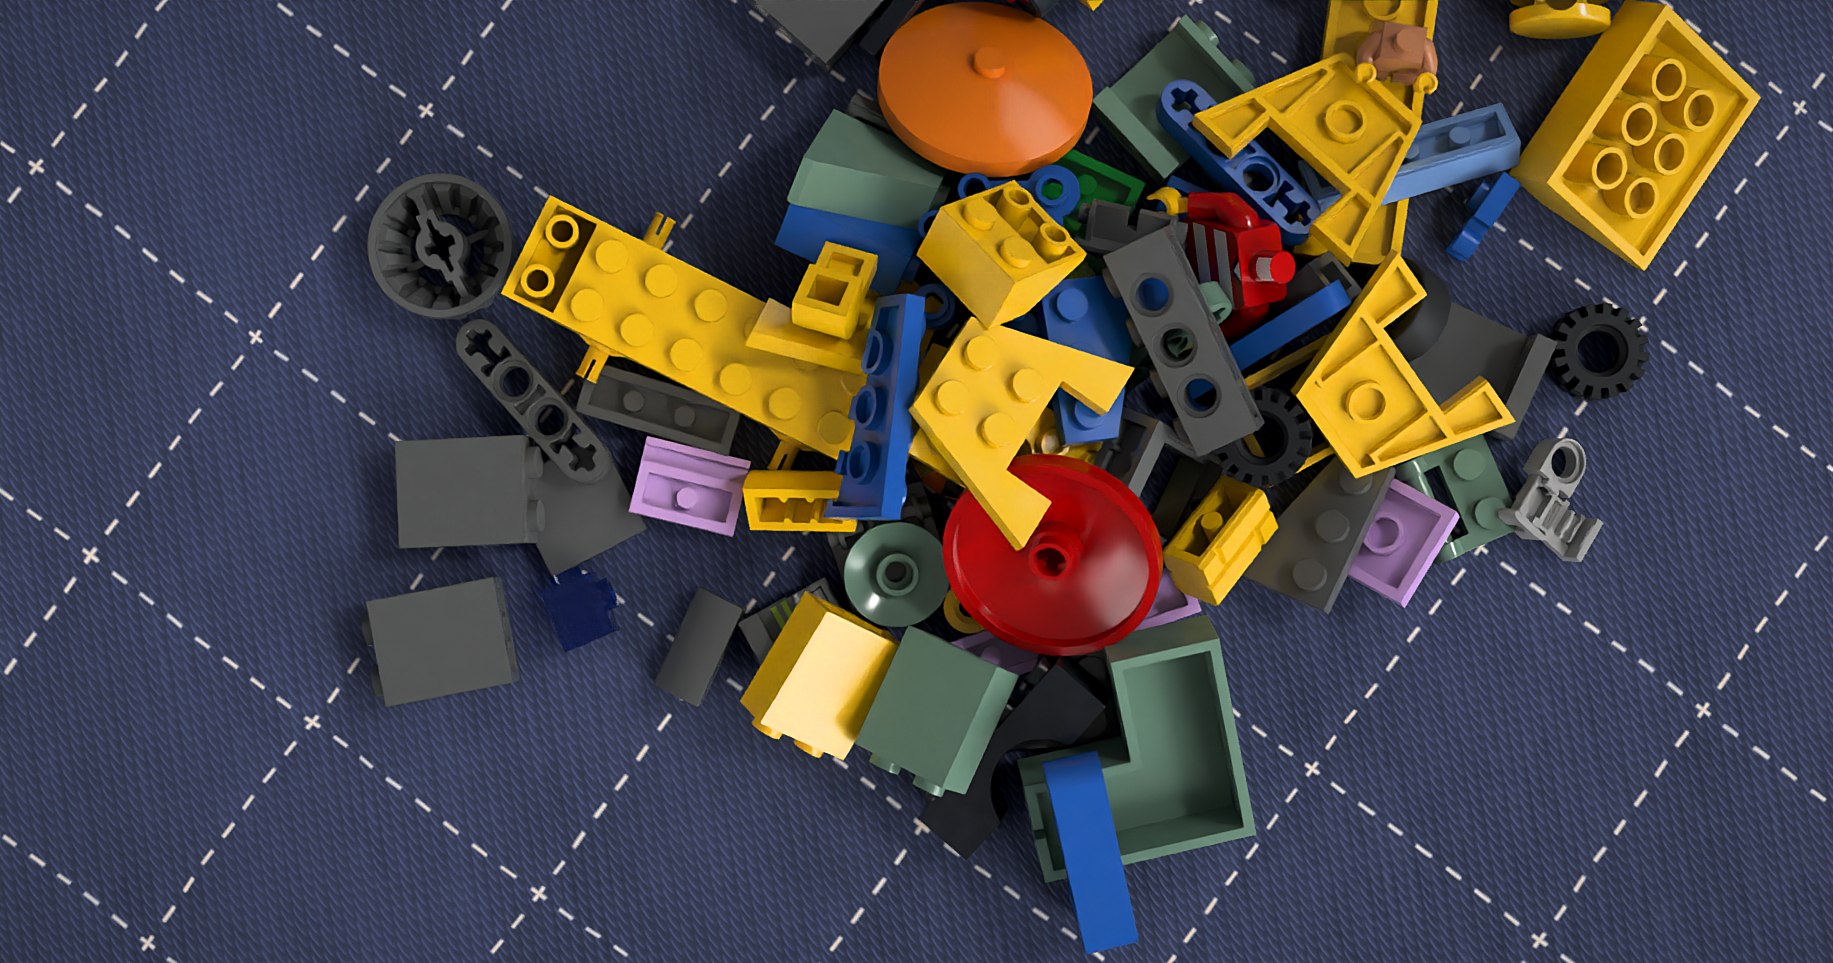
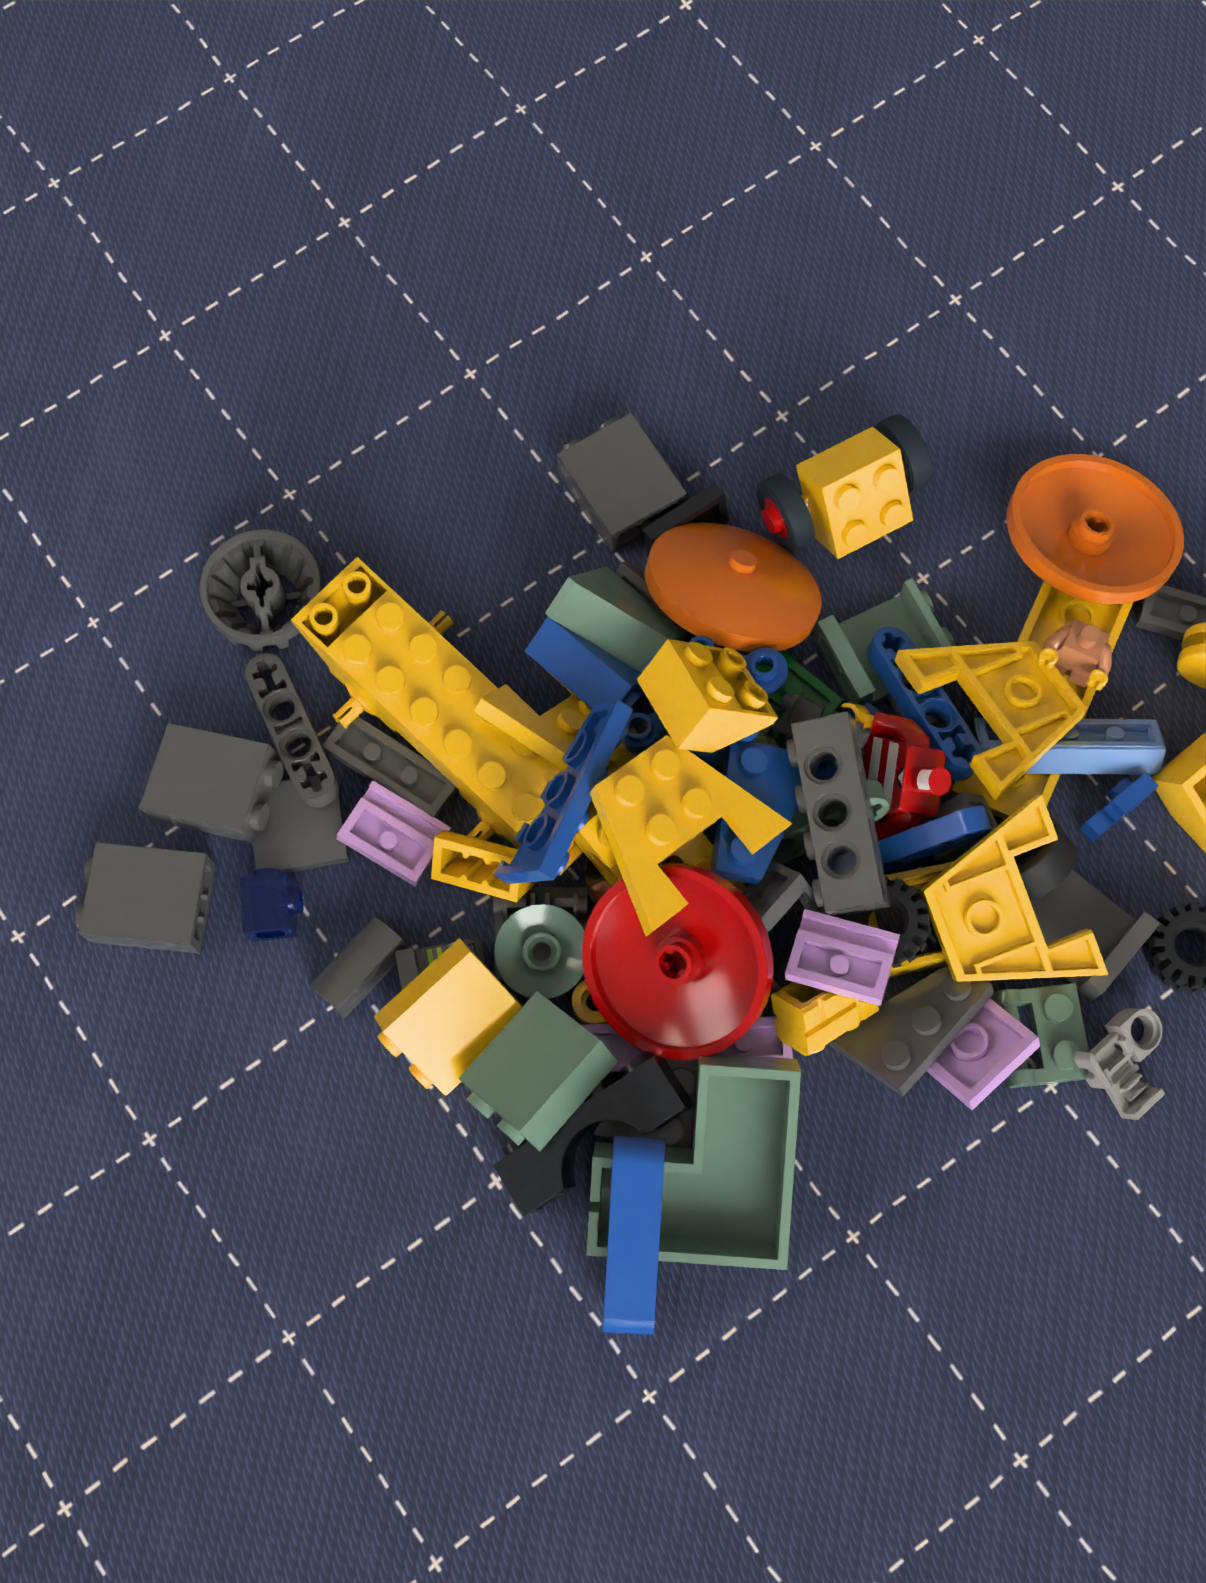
camera: 20 degrees right, 15 degrees down
(834, 290) = (558, 690): yellow brick -> none
(1227, 495) = (842, 957): none -> lavender plate

